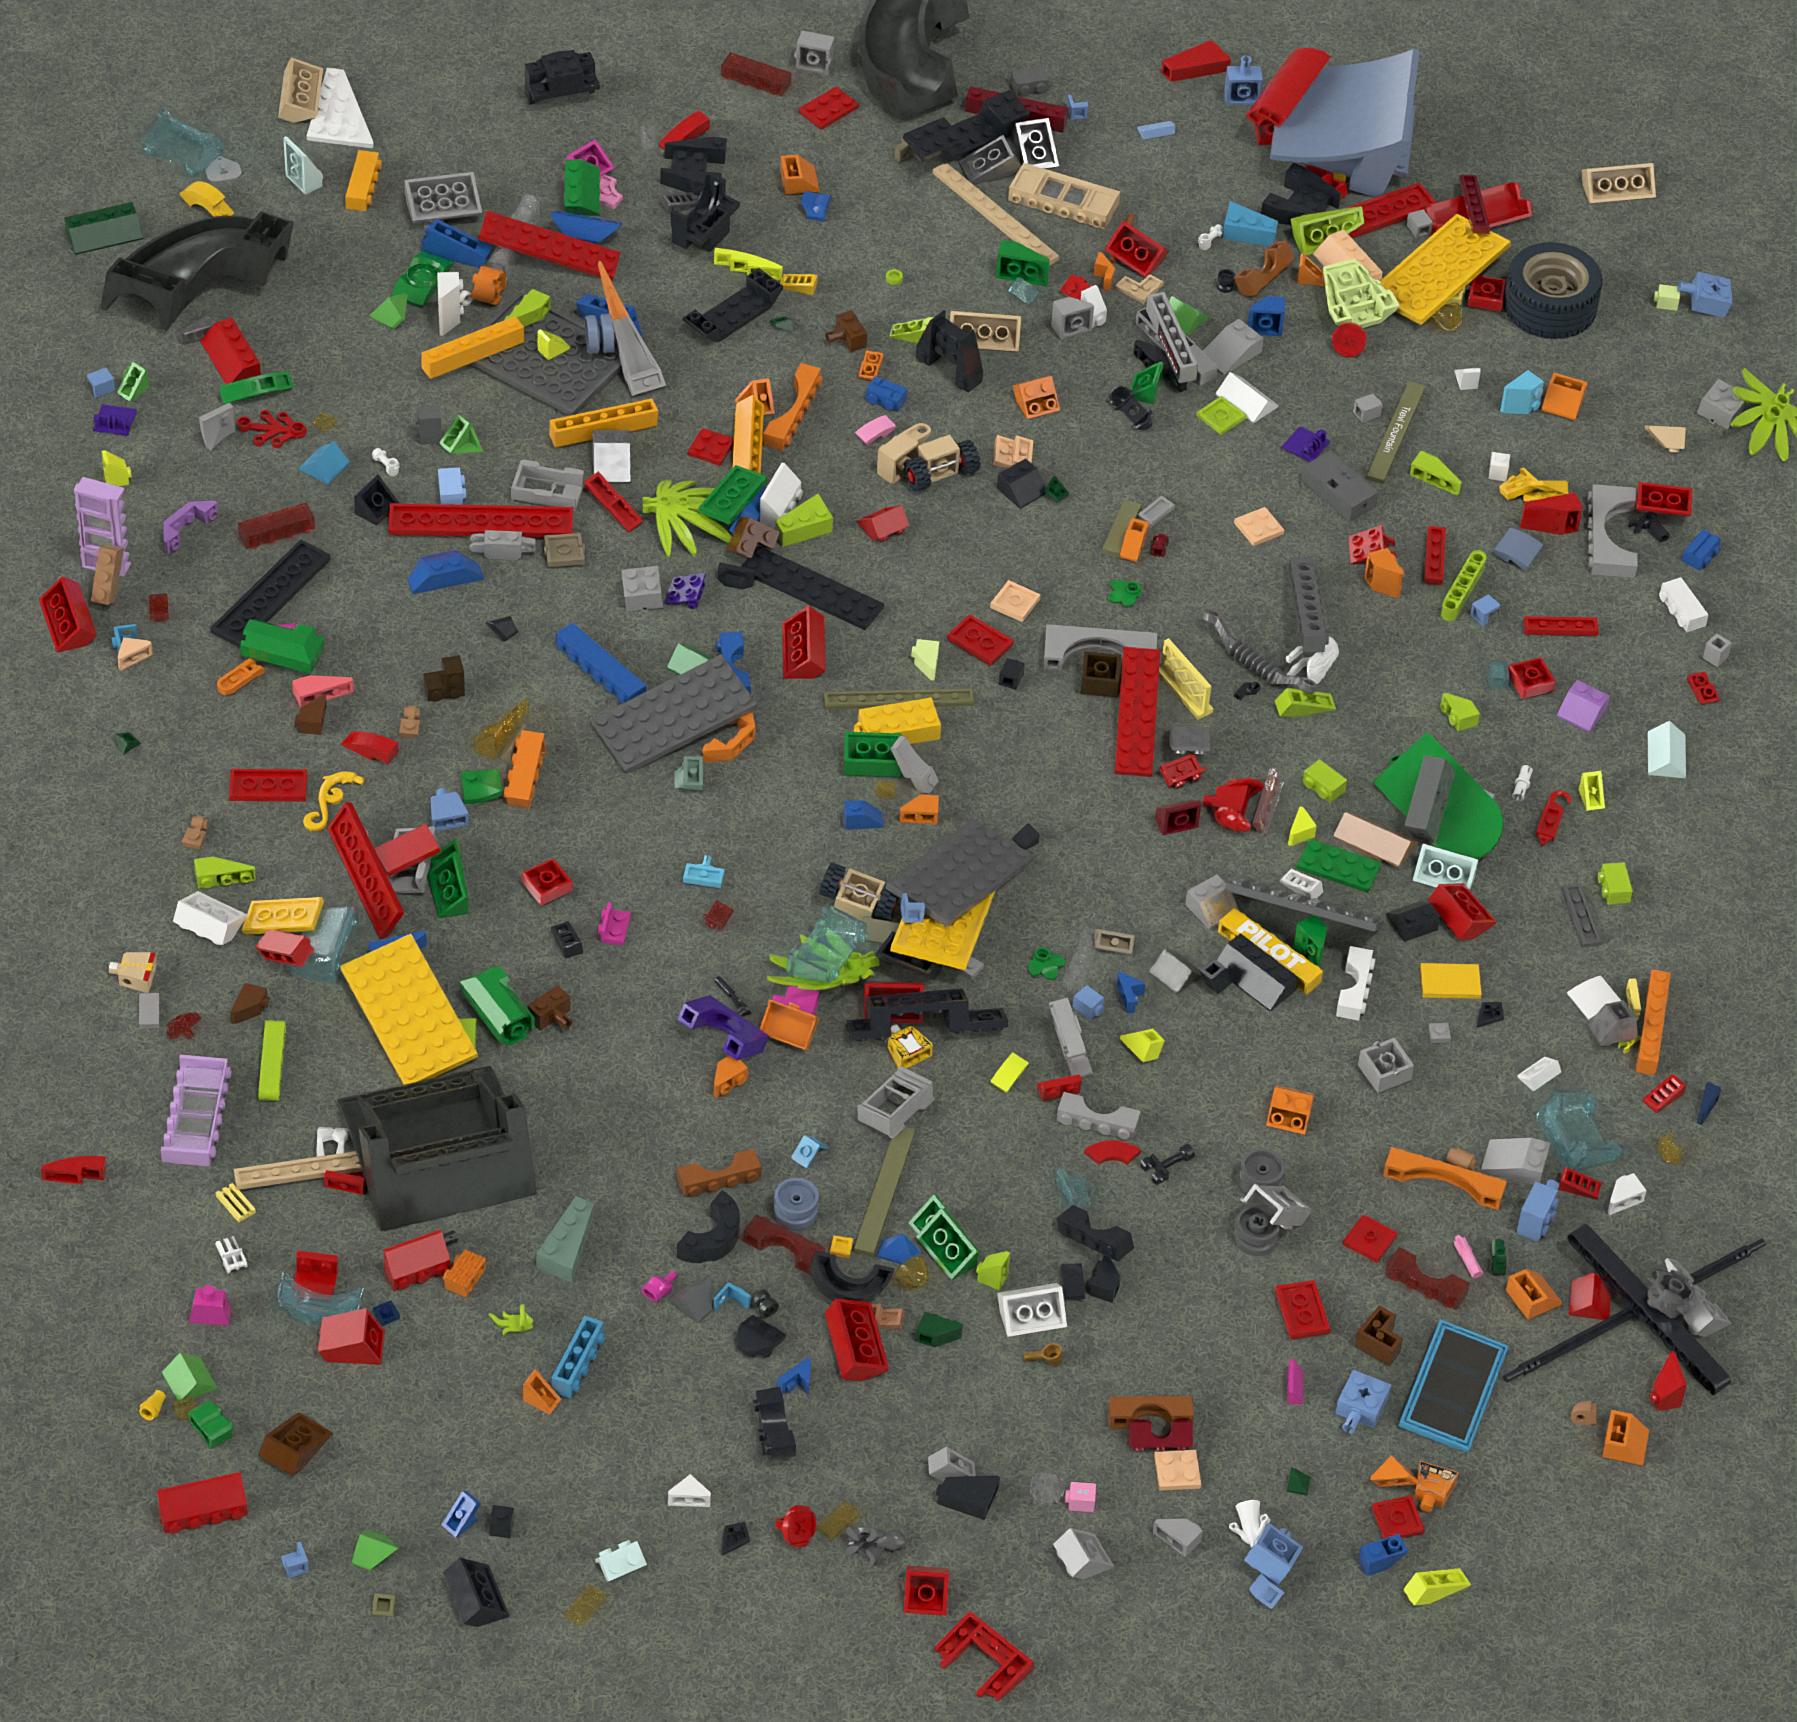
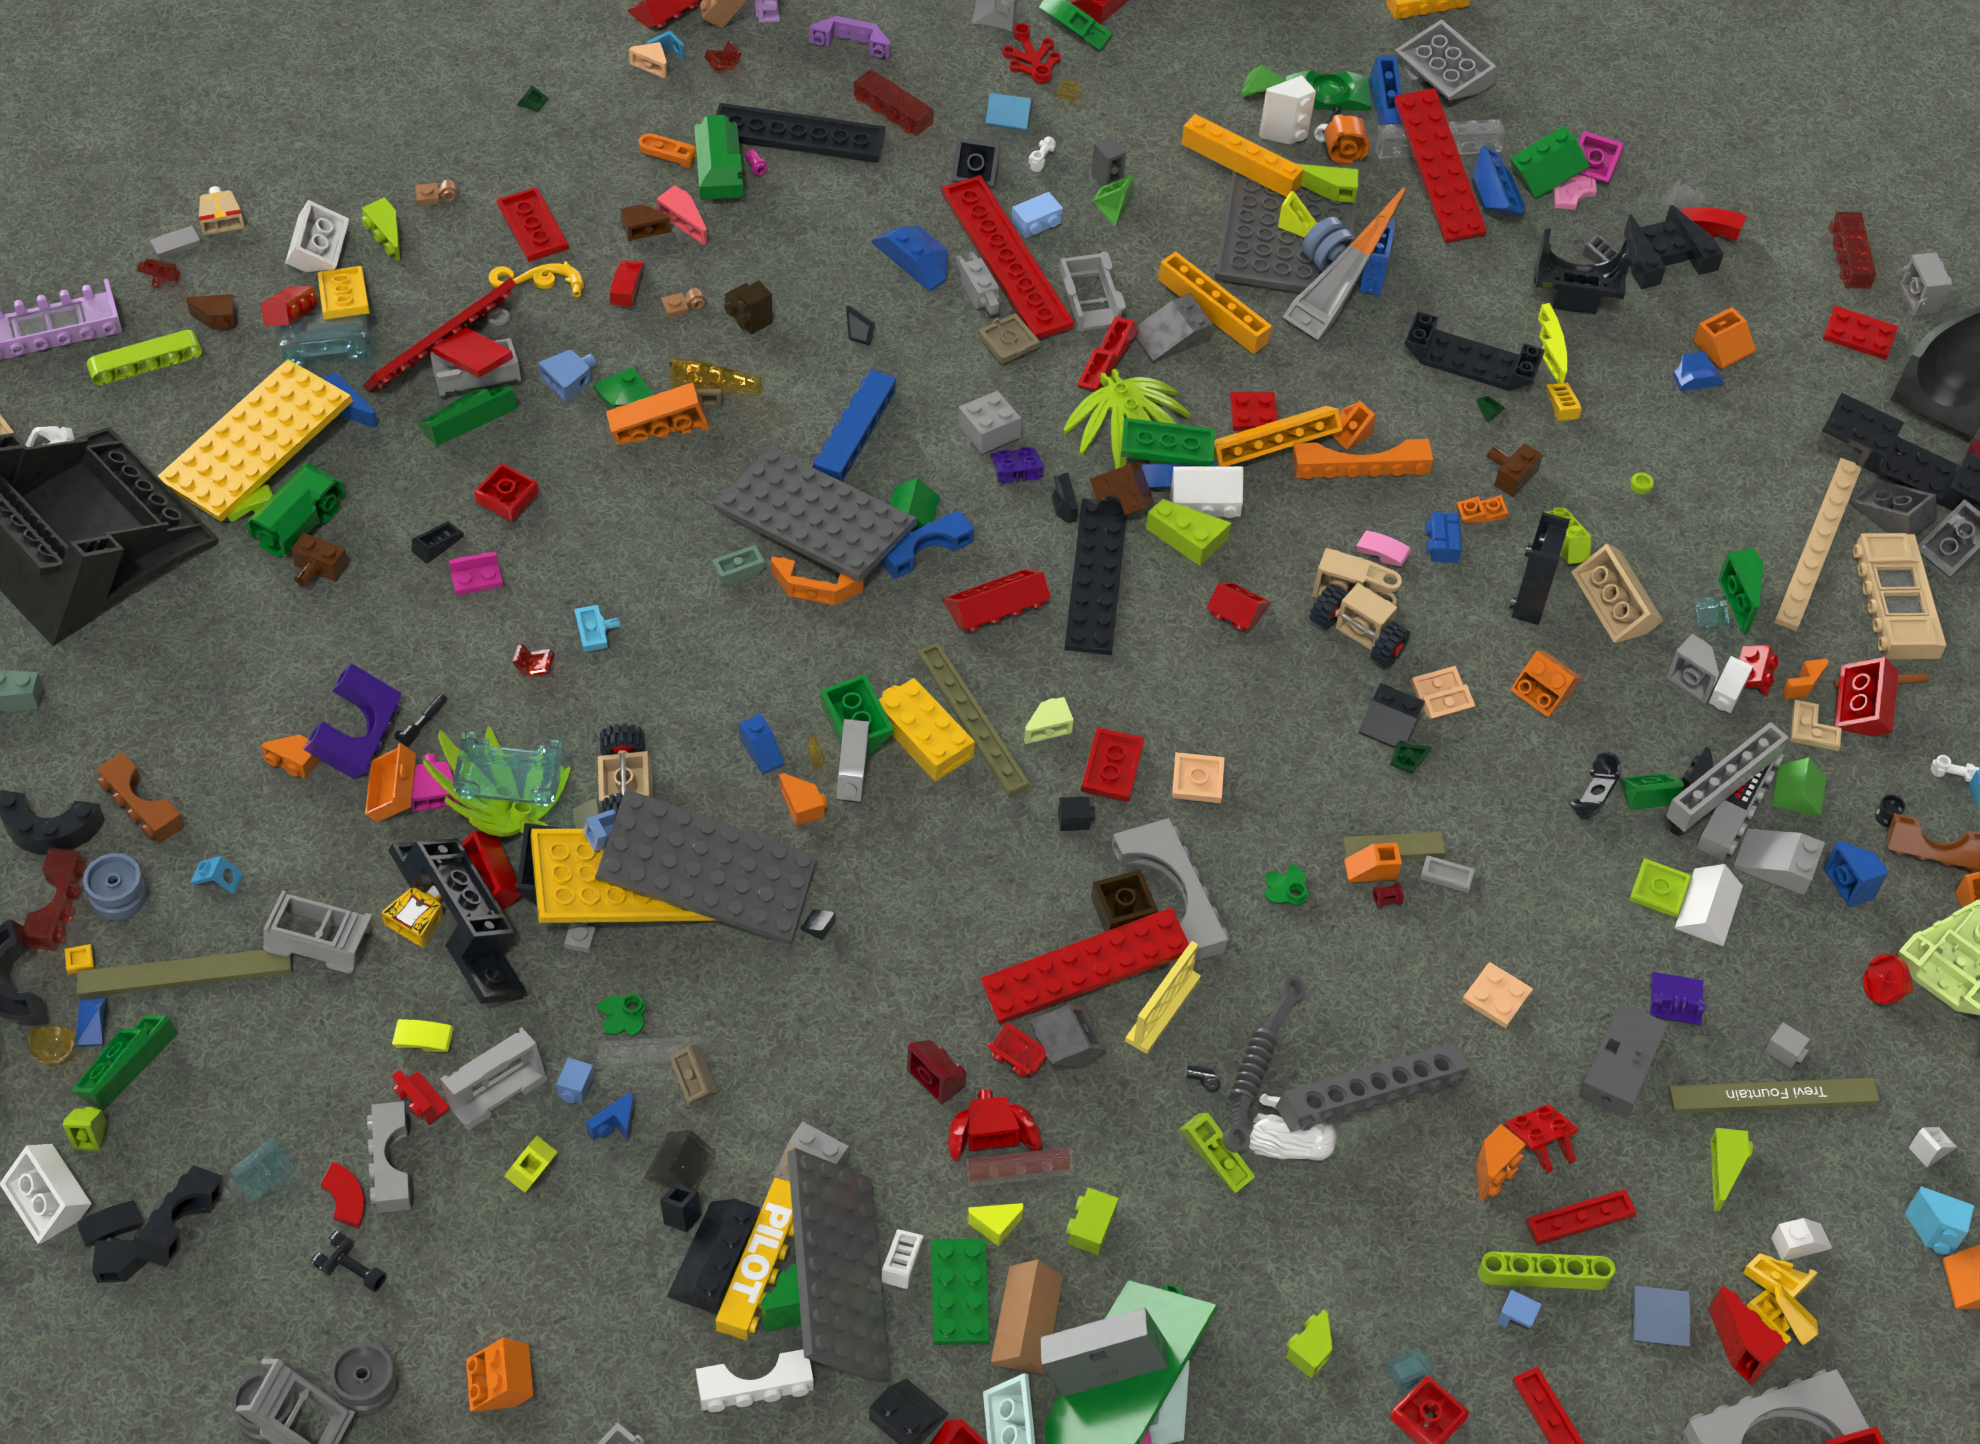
camera: 65 degrees right, 5 degrees up
(563, 75) = (1689, 79): black piece -> none

